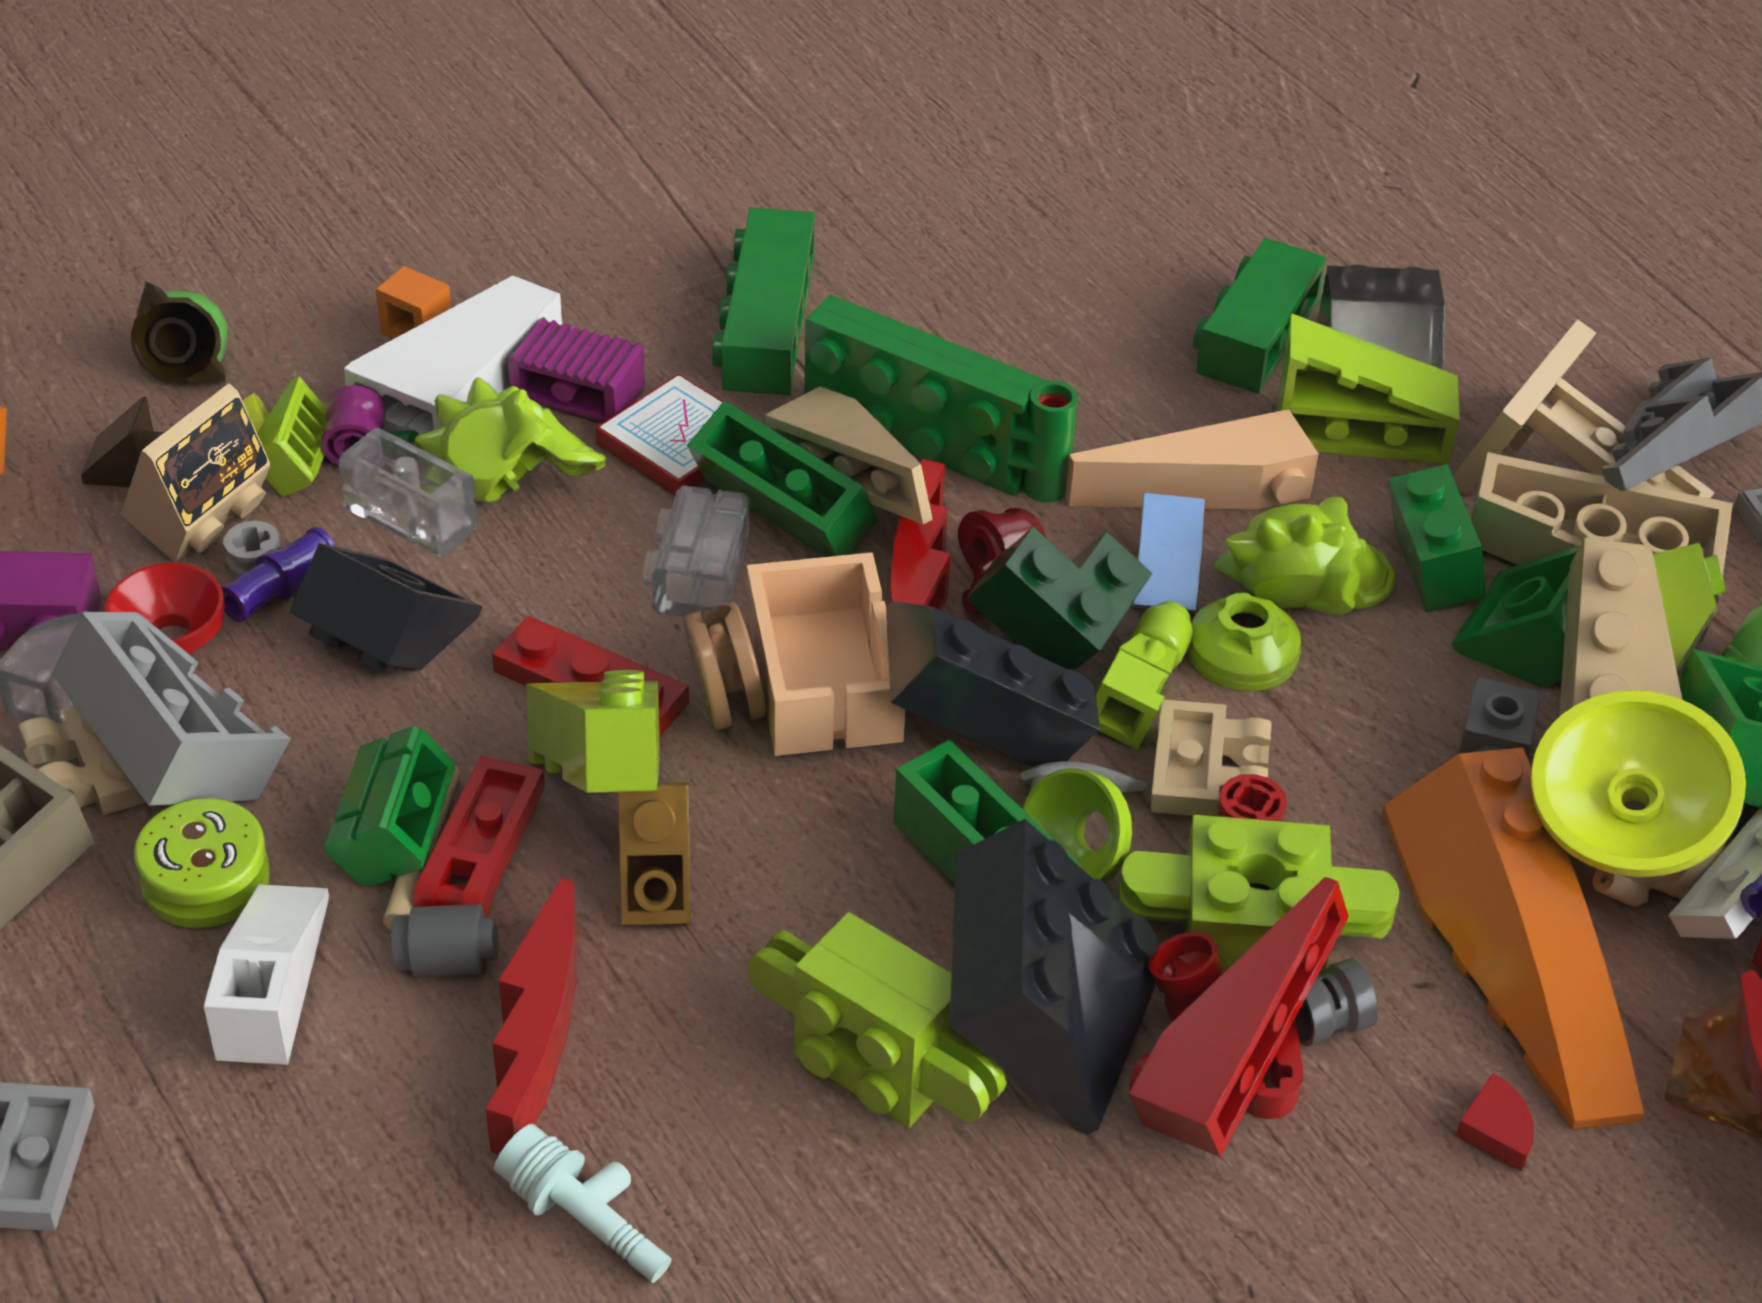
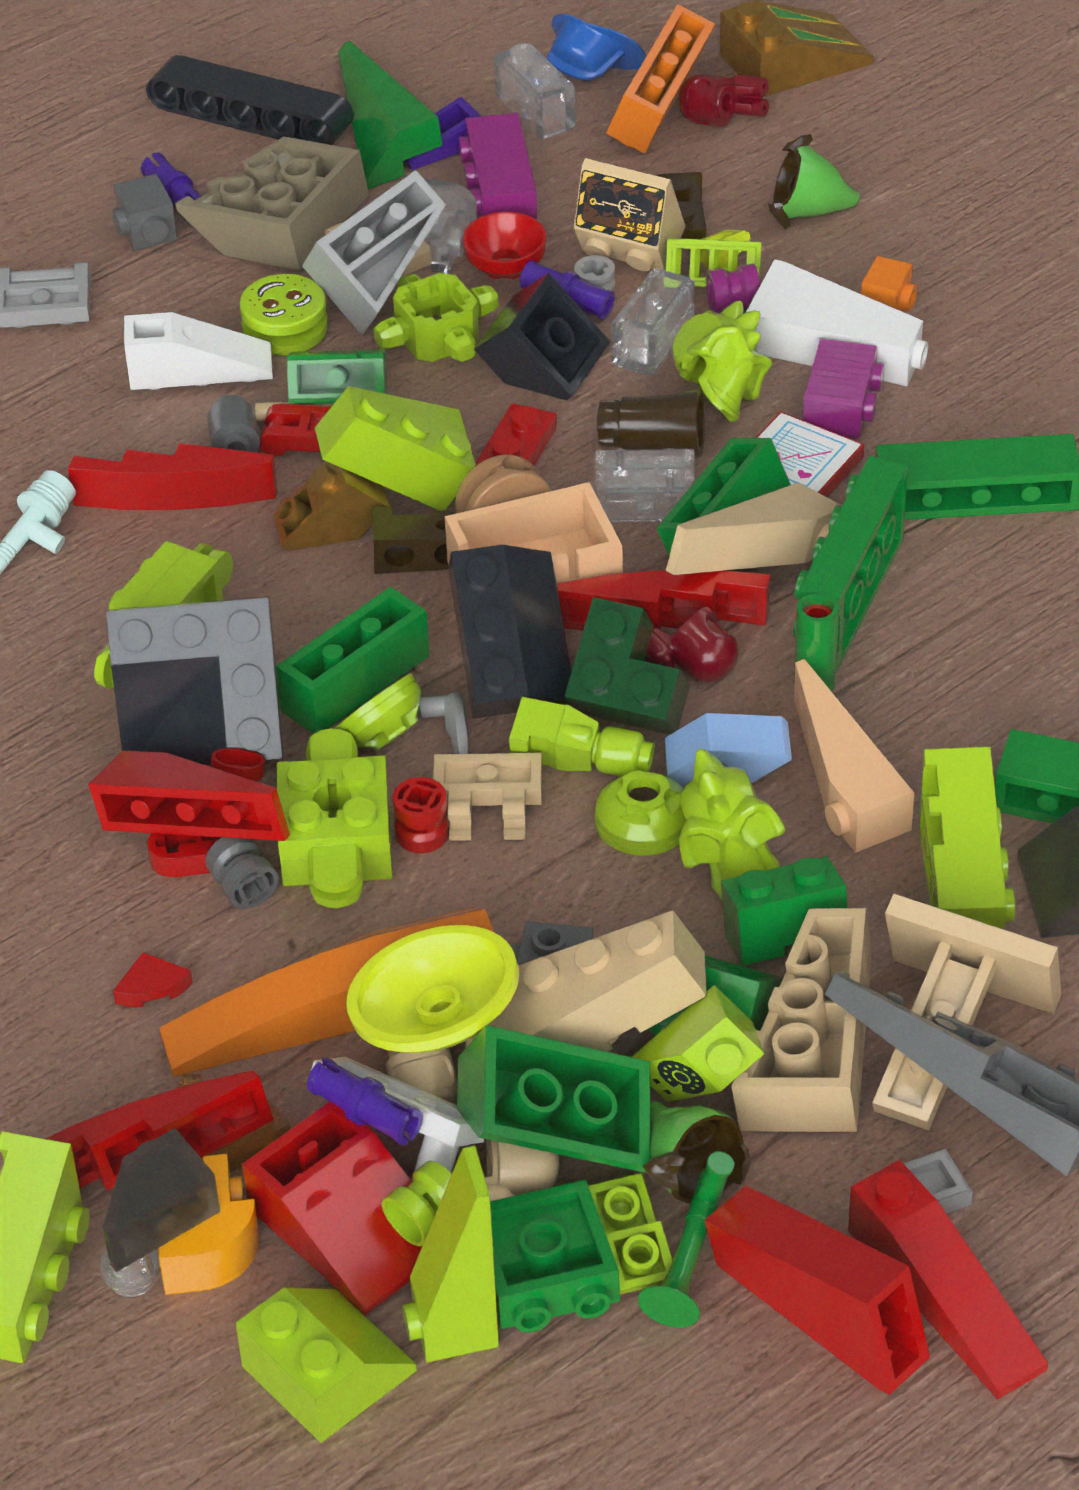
camera: 85 degrees right, 0 degrees up
(282, 666) = (431, 338): none -> lime piece
(597, 517) = (653, 422): none -> dark brown plant
(738, 794) = (409, 541): none -> dark brown leg

